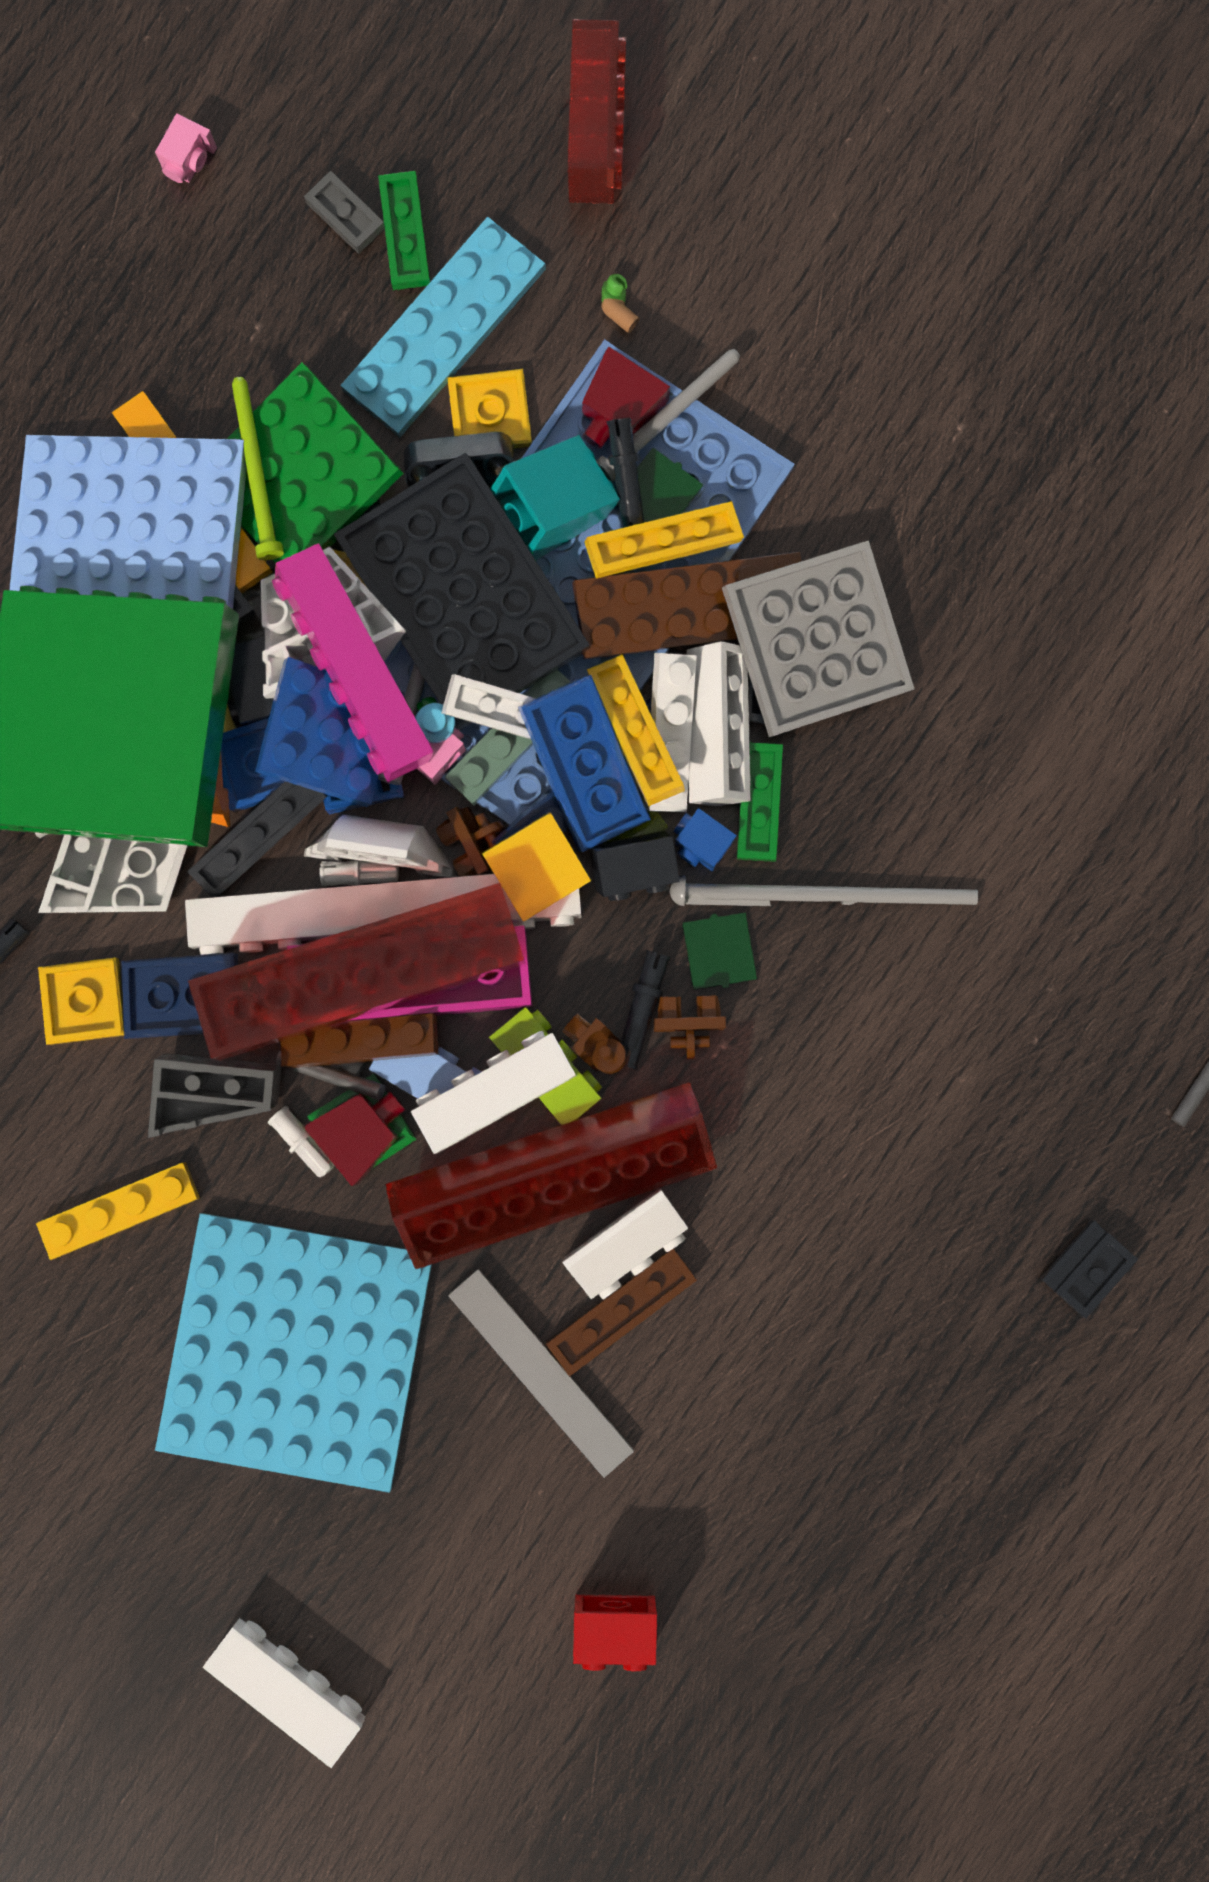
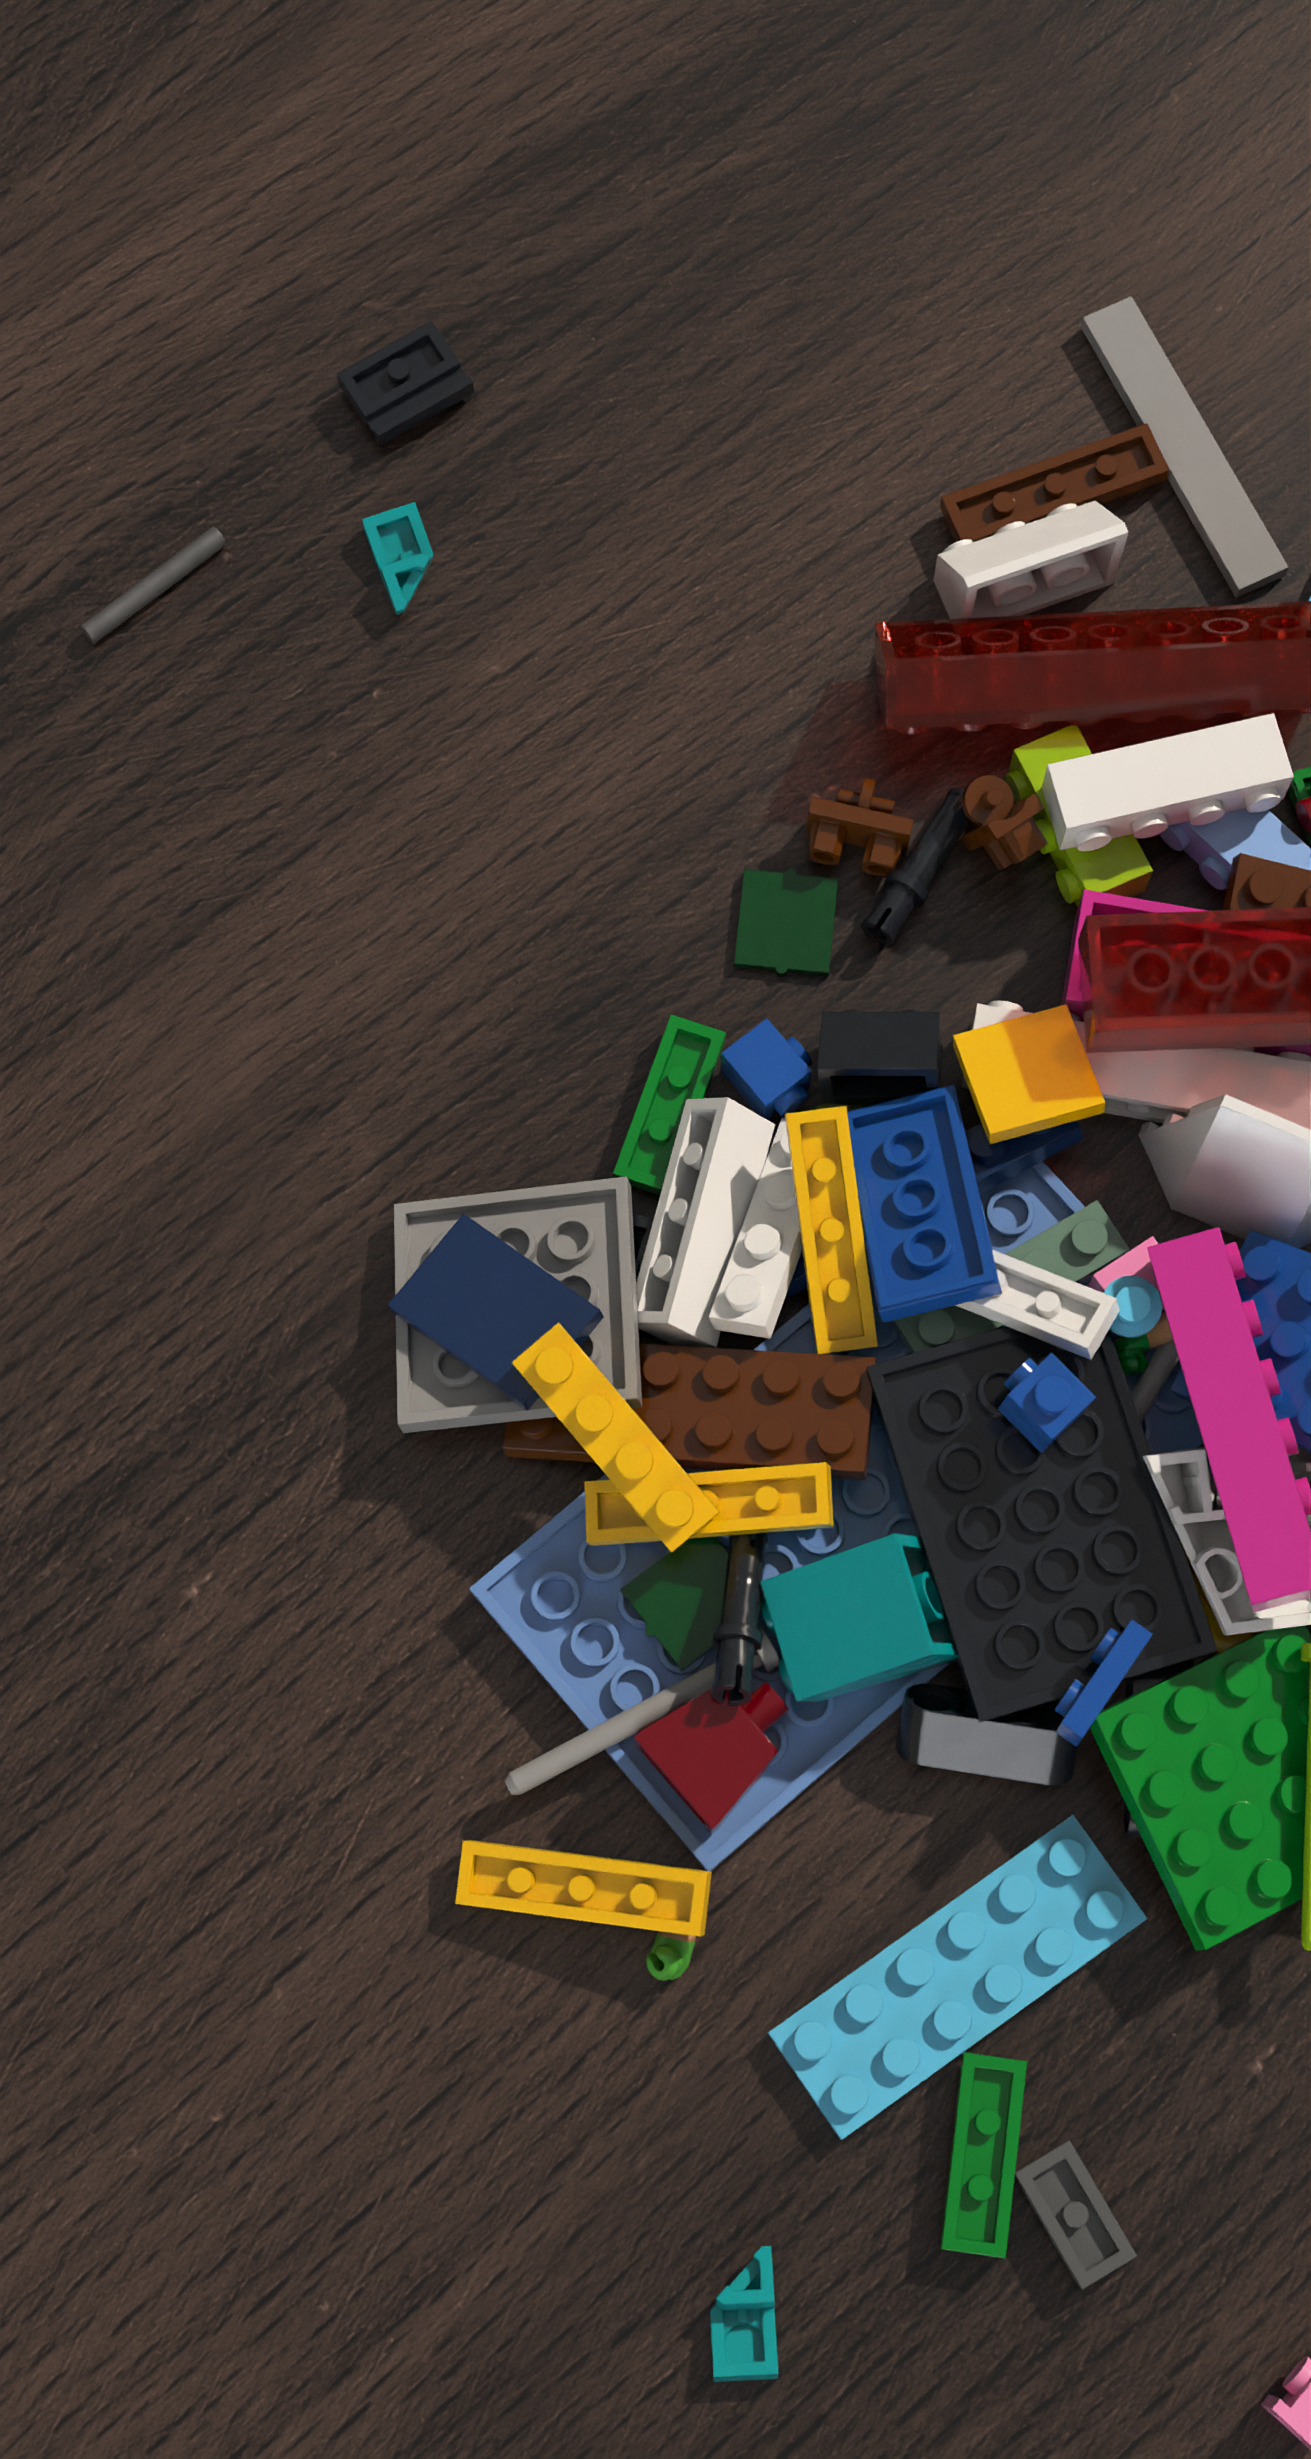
camera: 165 degrees left, 10 degrees down
(404, 471) = (1115, 1657): none -> blue plate
(473, 643) = (1044, 1400): none -> blue brick
(475, 836) = (1104, 1162): reddish brown hips -> none
(491, 405) = (916, 1819): yellow tile -> none
(515, 107) = (745, 2324): none -> teal slope
(596, 111) = (623, 2257): clear red brick -> none
(615, 1631) = (1166, 106): red brick -> none
(675, 308) = (583, 1887): none -> yellow plate
(732, 555) = (615, 1437): none -> yellow plate
(761, 895) = (588, 949): light grey bar -> none
(829, 623) = (489, 1305): none -> dark blue tile
(1051, 1143) = (399, 551): none -> teal slope

